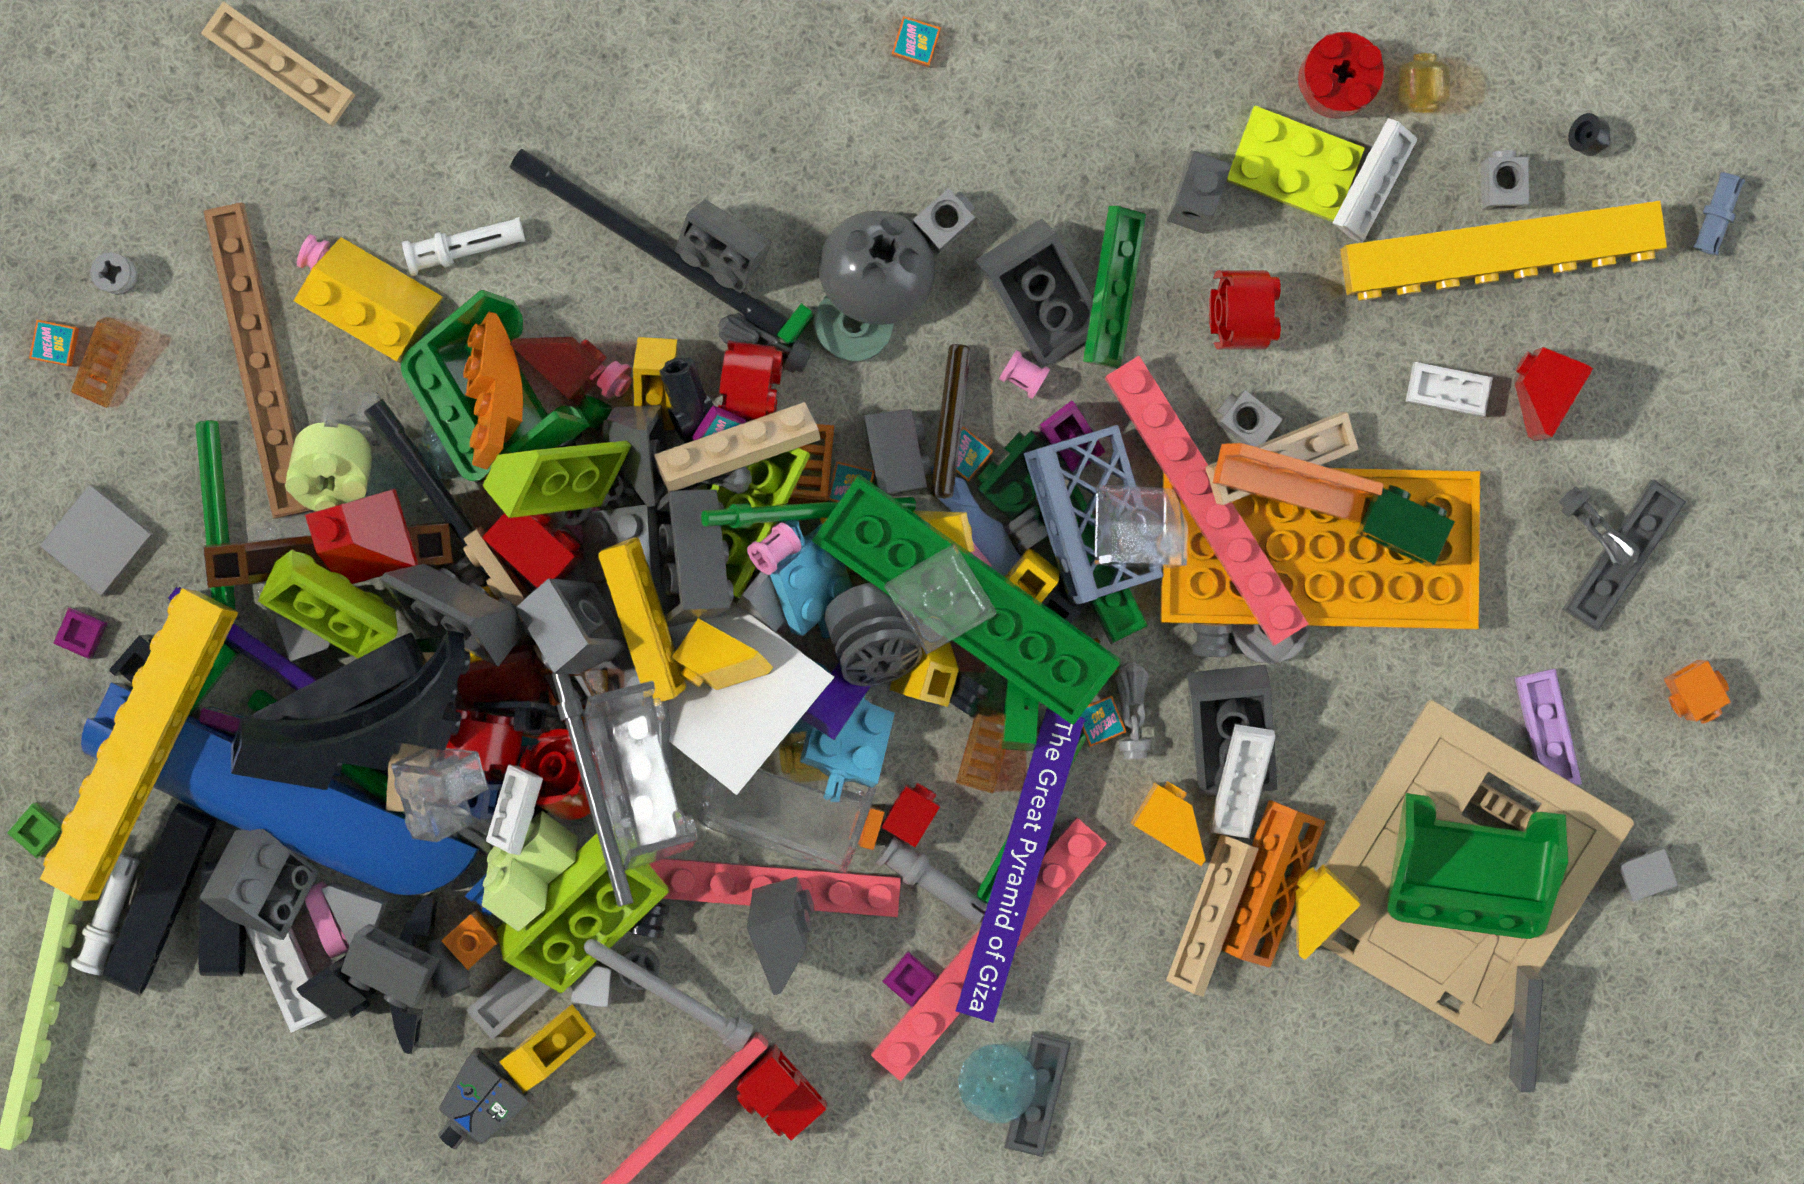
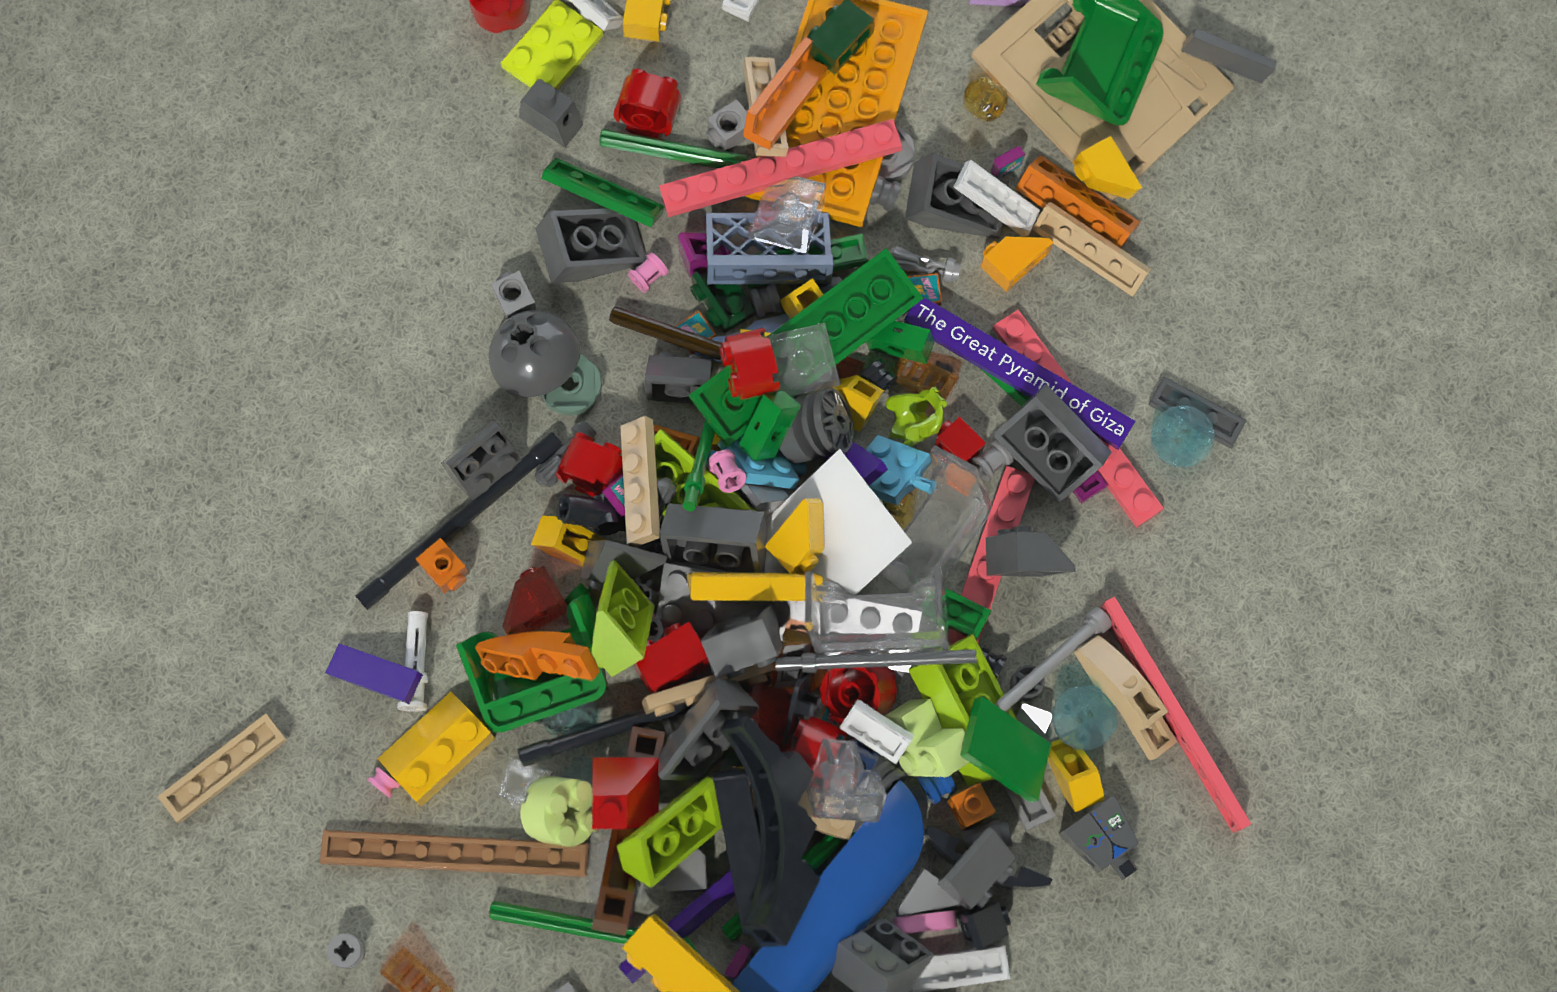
camera: 85 degrees left, 15 degrees down
(432, 202) = (374, 673): none -> dark purple tile
(541, 964) = (1005, 749): none -> green tile
(578, 228) = (441, 556): none -> orange brick
(615, 380) = (559, 573): bright pink plate -> none
(625, 1033) = (1091, 731): none -> clear light blue plate
(657, 1091) = (1129, 693): none -> tan slope
(695, 867) = (965, 615): none -> green plate
(780, 1091) = (1152, 597): red brick -> none
(796, 325) = (558, 425): green tile -> none
(843, 478) = (689, 420): teal tile -> none
(853, 587) = (775, 417): none -> green piece
(906, 542) = (750, 364): none -> red brick
(916, 41) = (373, 284): tile -> none
(926, 749) = (910, 416): none -> lime helmet
(935, 929) = (1052, 443): none -> dark grey slope
(1198, 357) = (669, 149): none -> green axle
(1299, 781) = (1008, 162): none -> magenta tile
(1376, 733) = (985, 99): none -> clear yellow head

